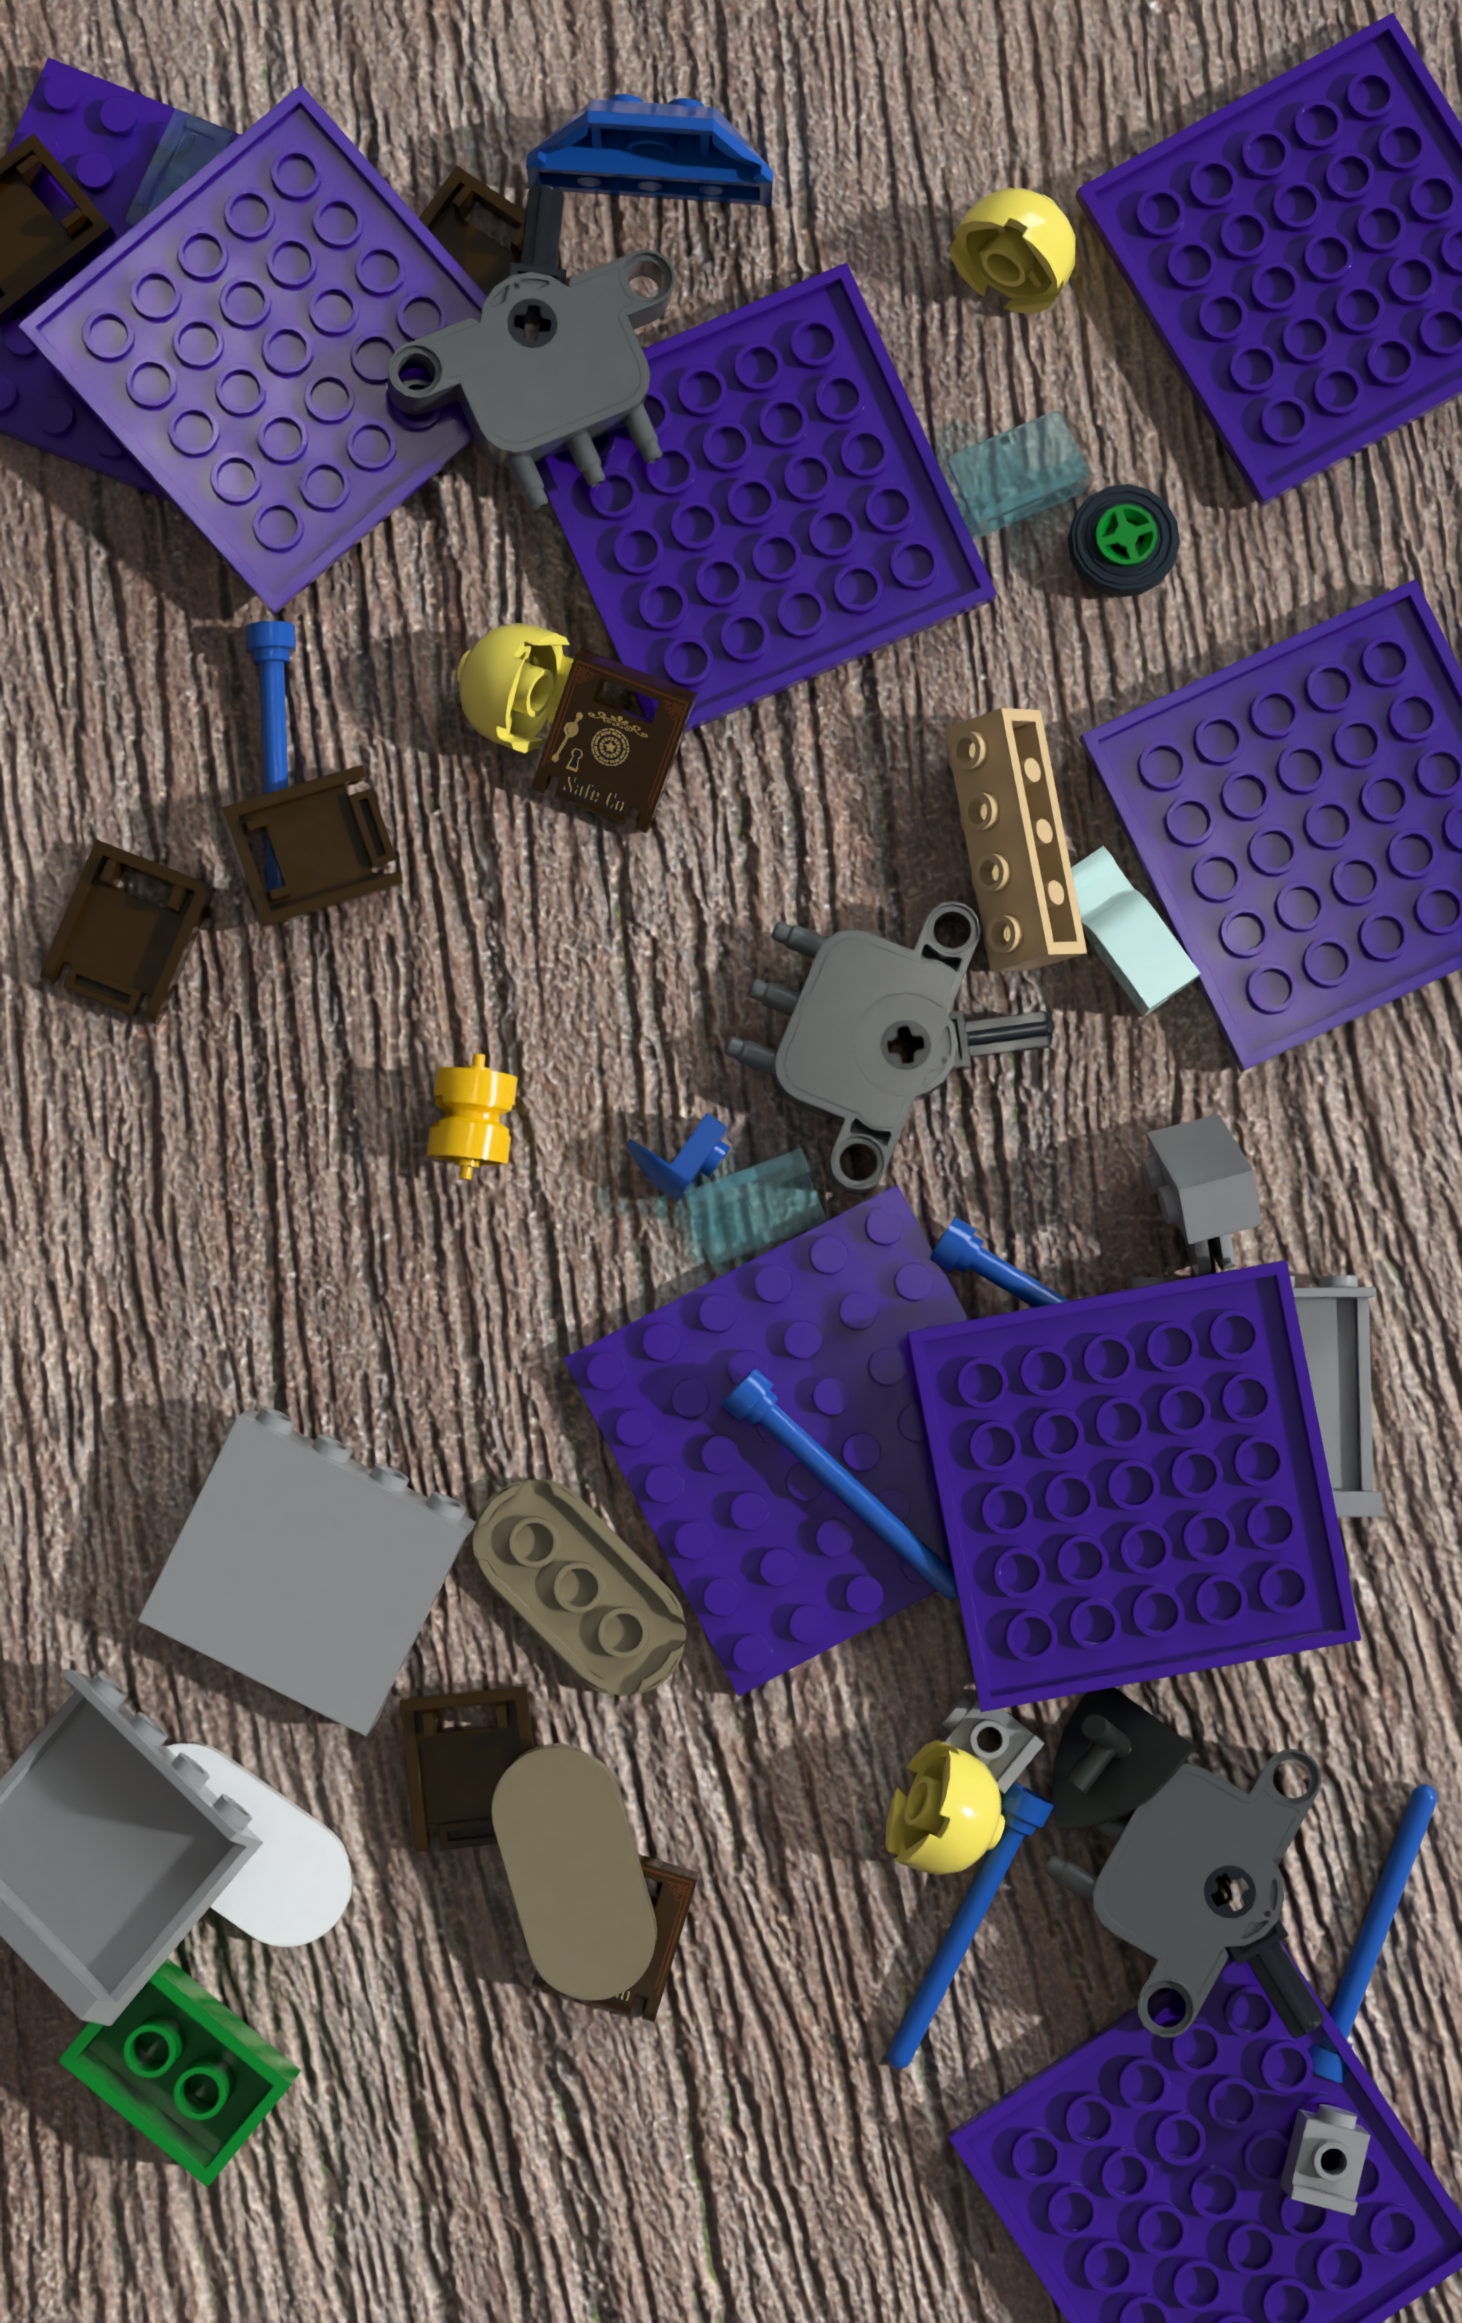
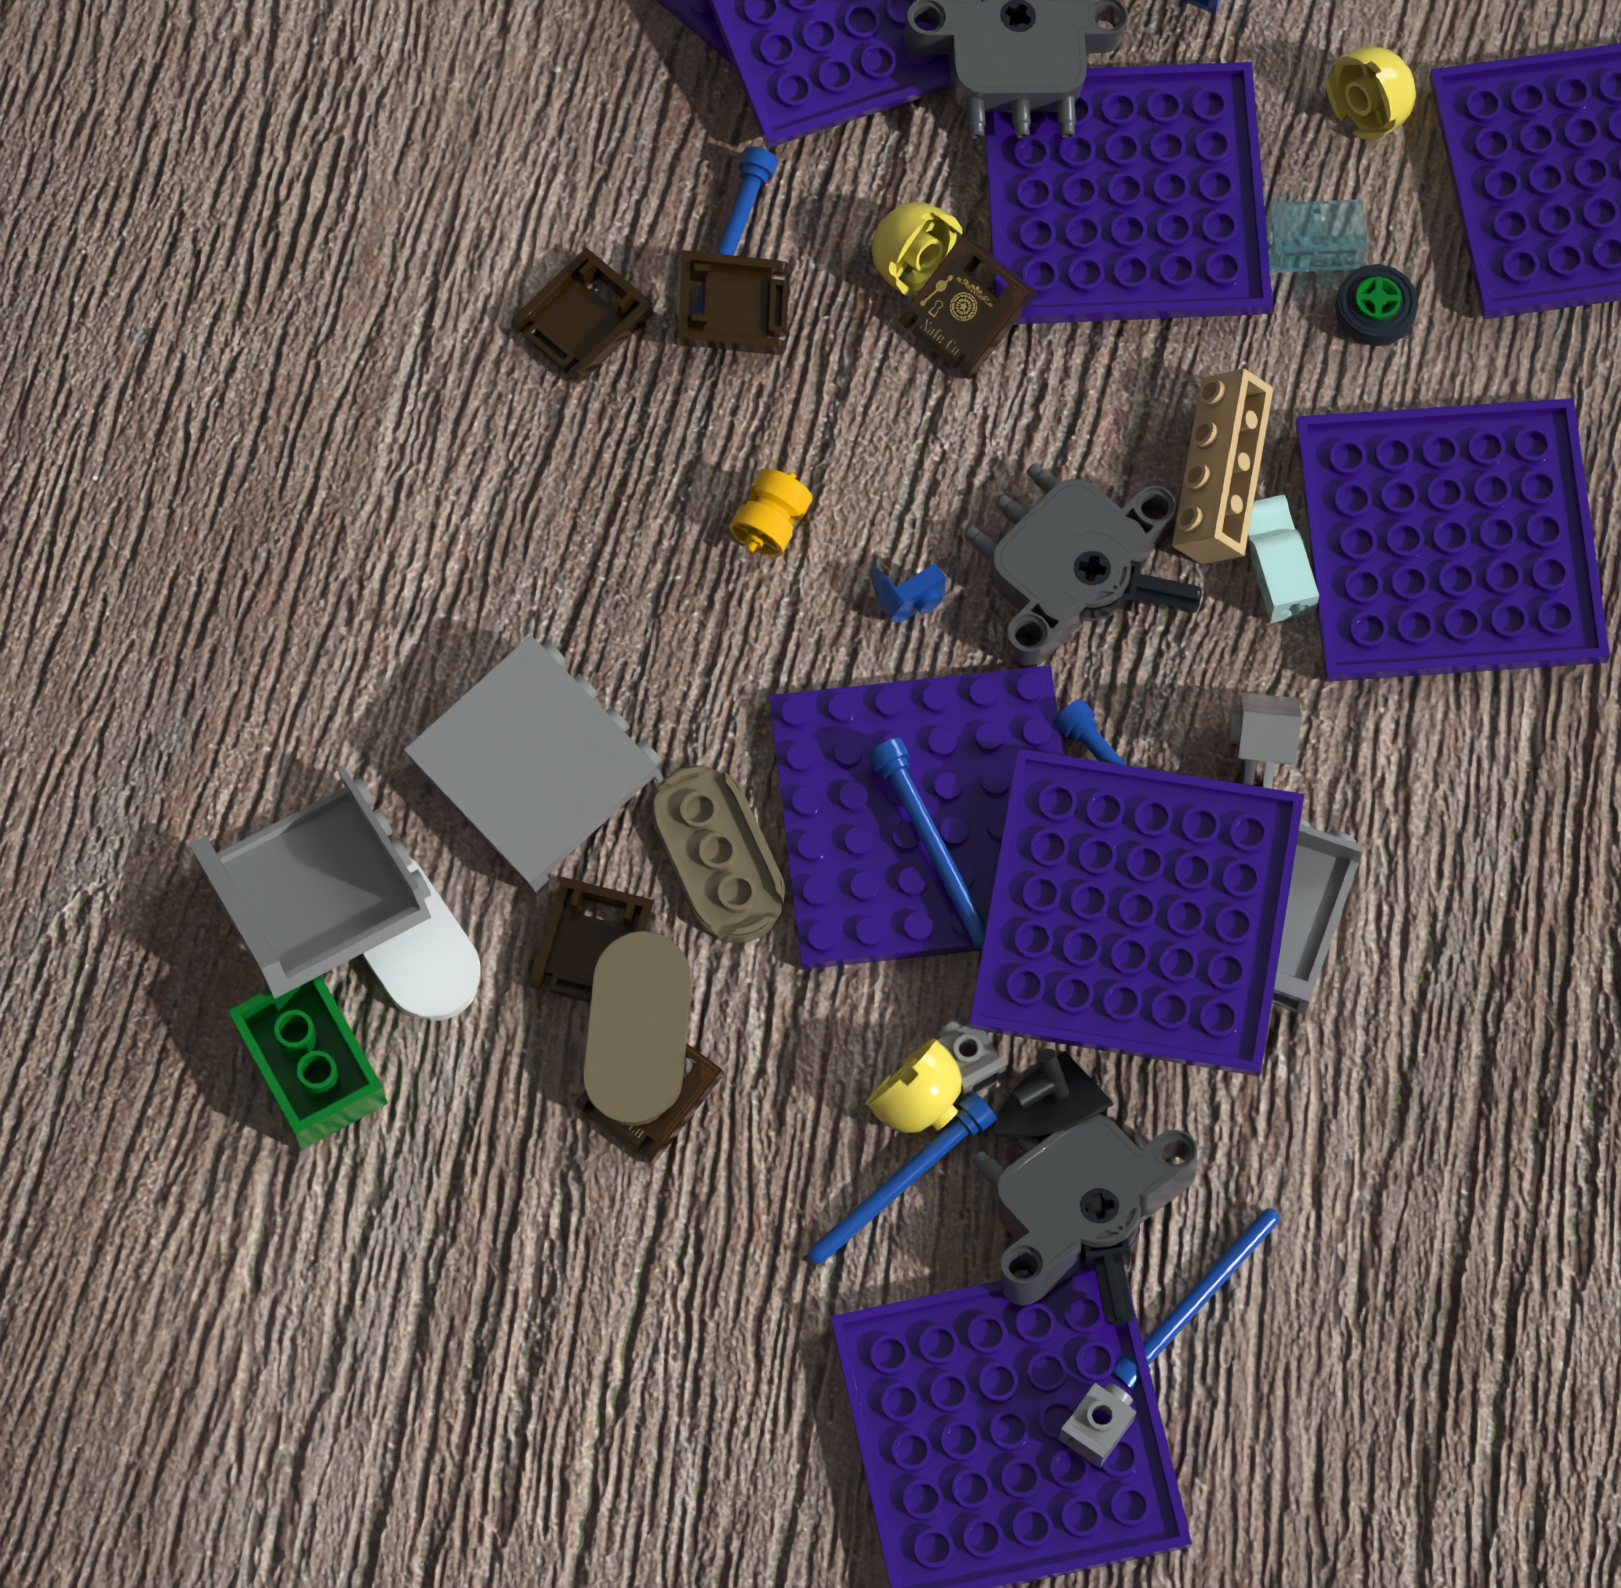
camera: 25 degrees right, 15 degrees down
(755, 1207) = (943, 642): clear light blue panel -> none

